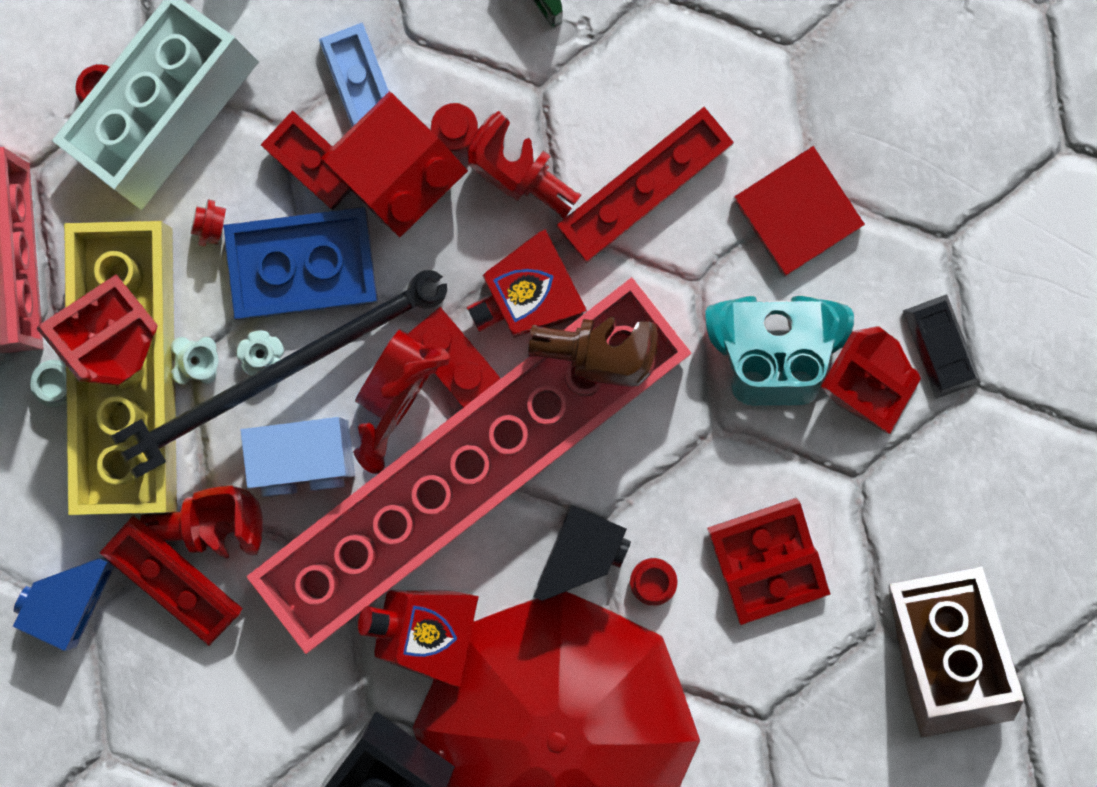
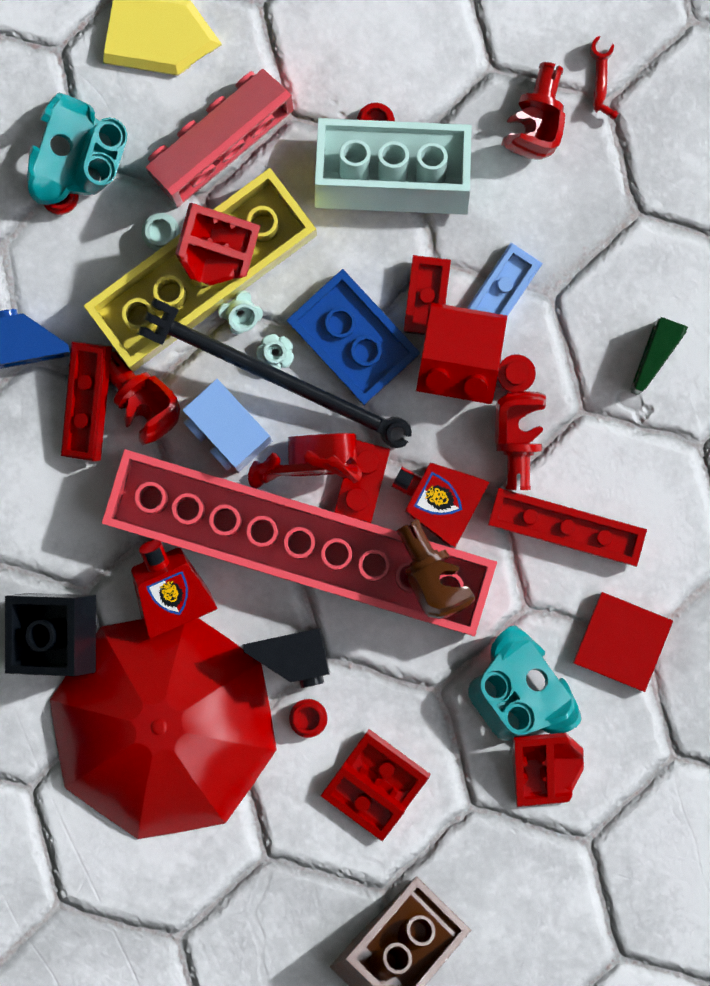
camera: 60 degrees right, 0 degrees up
(208, 223) = (336, 257): red plate -> none
(941, 346) = (600, 800): black tile -> none

